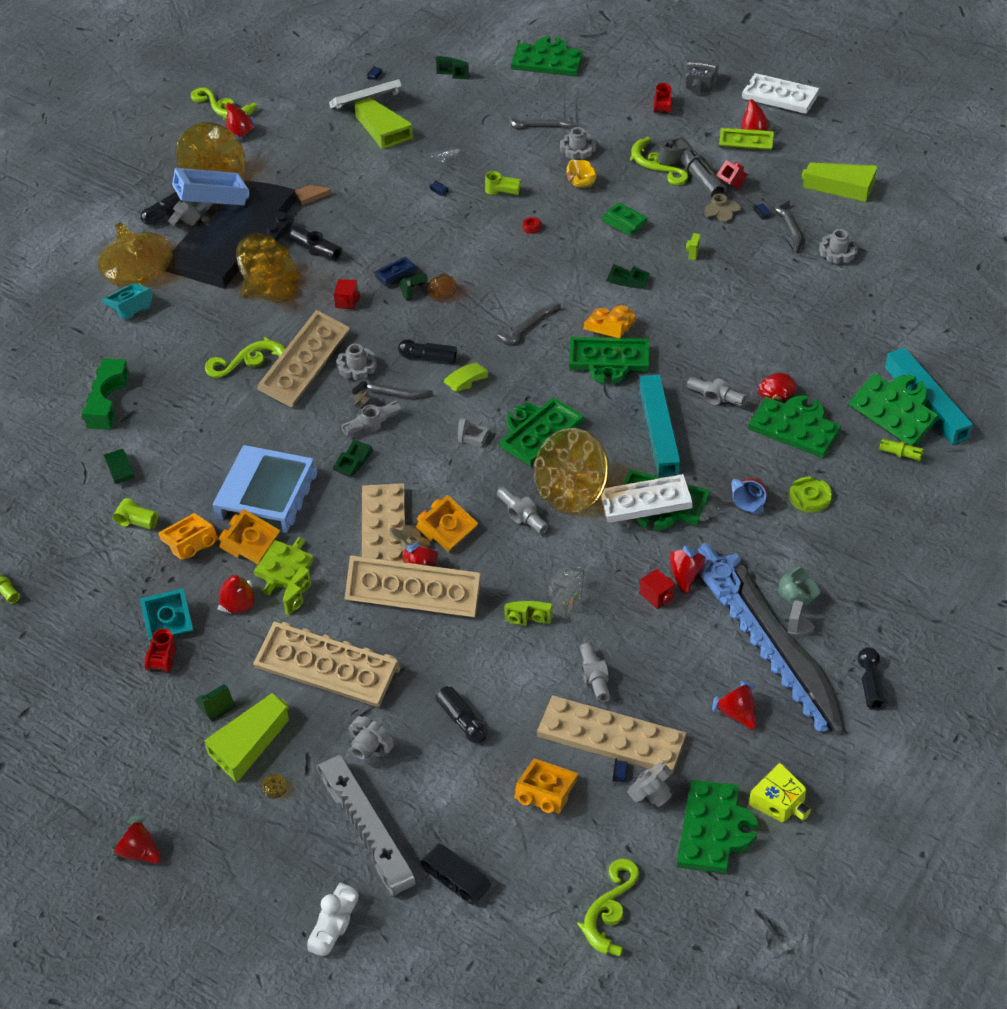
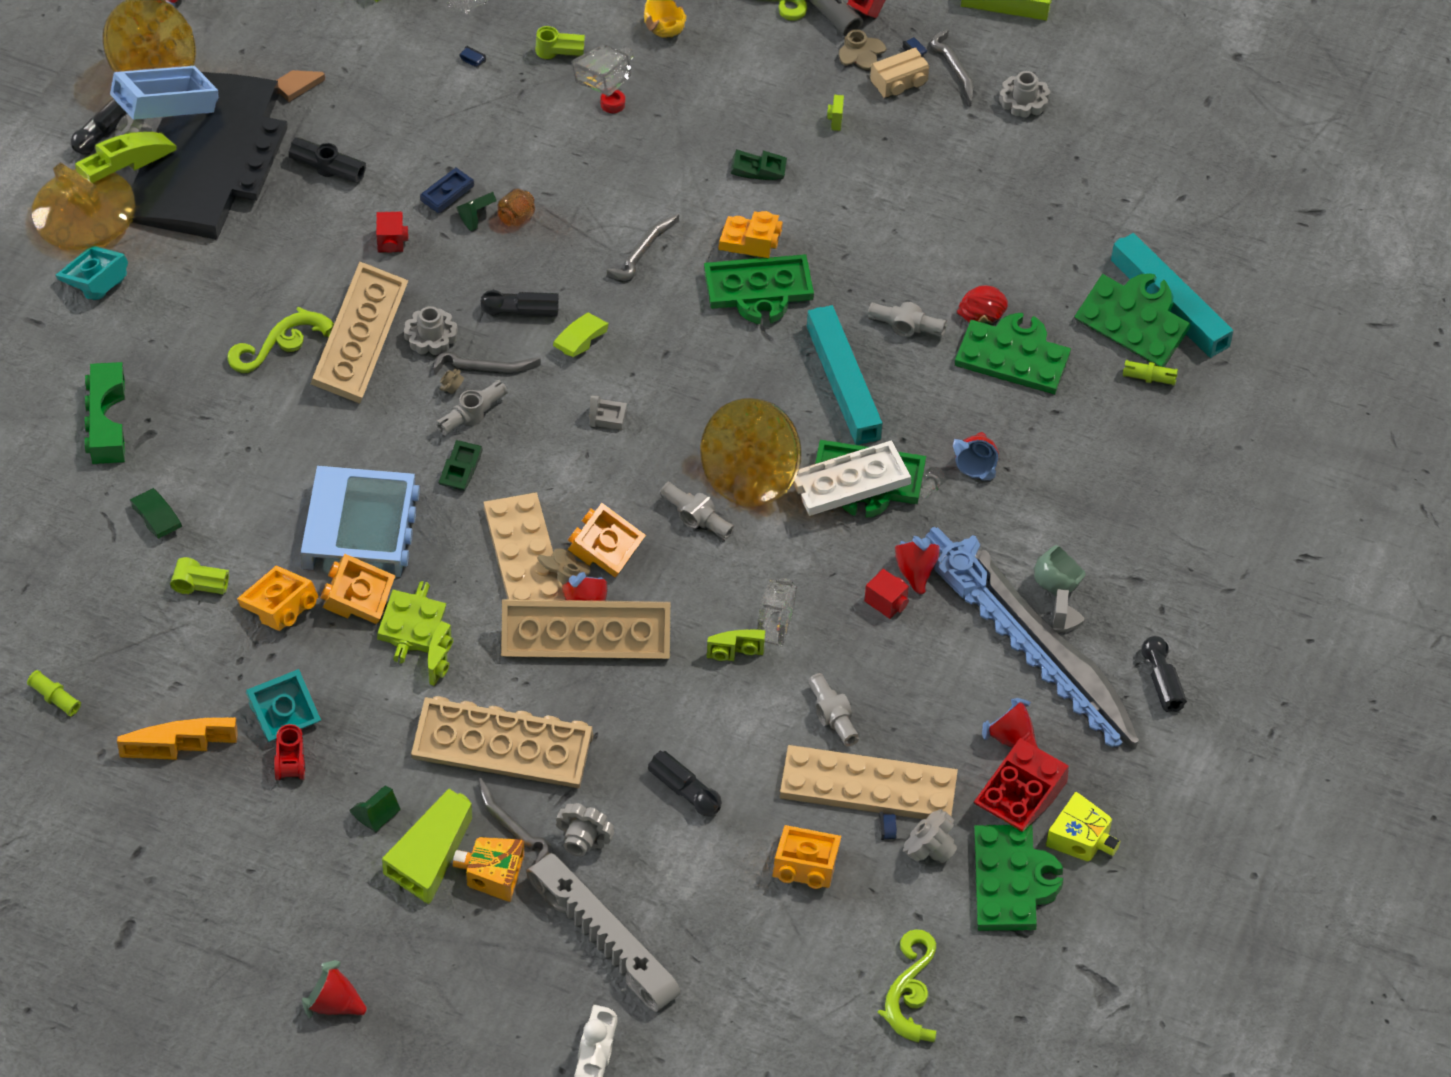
camera: 15 degrees left, 5 degrees up
(75, 628) = (166, 739): none -> light orange slope
(178, 221) = (120, 151): none -> lime slope
(236, 595) = (363, 669): red hat -> none
(266, 269) = (276, 209): clear yellow bracket -> none
(274, 786) = (478, 902): clear yellow tile -> none
(292, 758) = (492, 865): none -> torso
(317, 729) = (511, 825): none -> flat silver piece
(455, 874) = (724, 975): black beam -> none
(529, 202) = (603, 68): none -> clear torso
(536, 426) = (691, 397): green plate -> none
(624, 218) = (735, 79): green plate -> none
(737, 752) = (1023, 785): none -> red slope
(746, 224) = (899, 72): none -> tan brick
(810, 494) = (1048, 446): lime tile -> none

